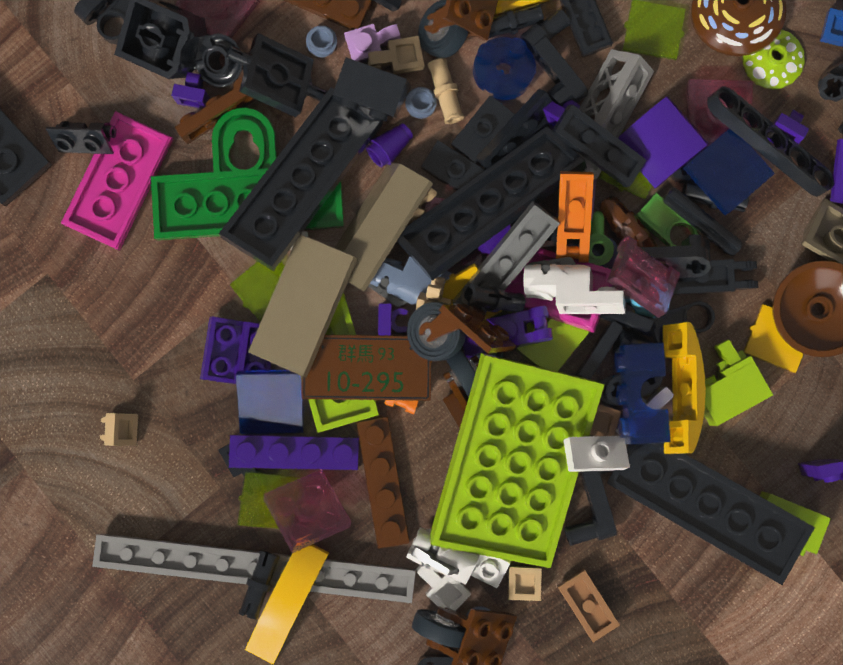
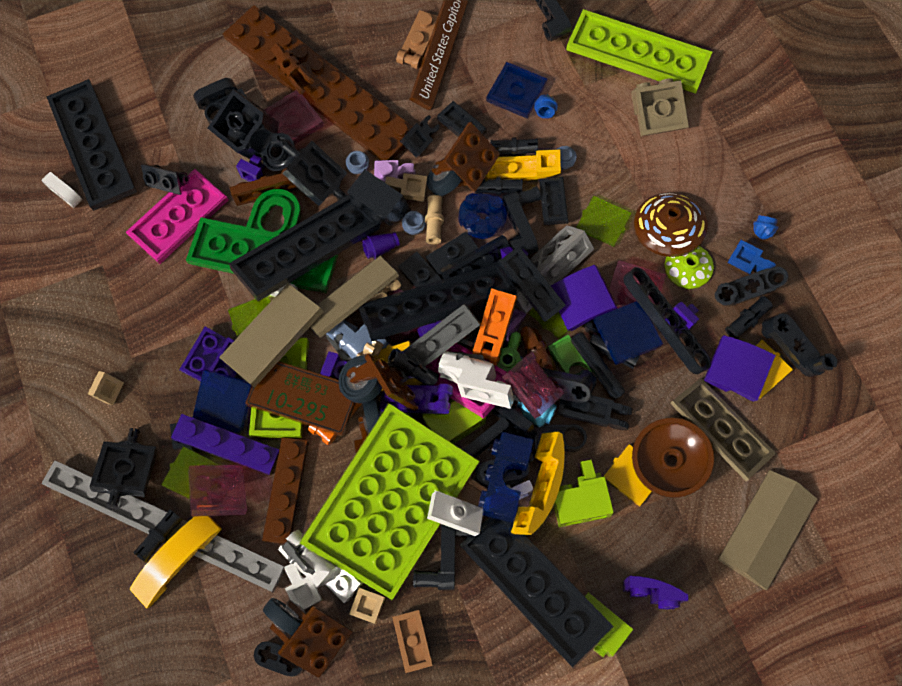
camera: 20 degrees right, 15 degrees down
(184, 519) = (123, 469): none -> black plate

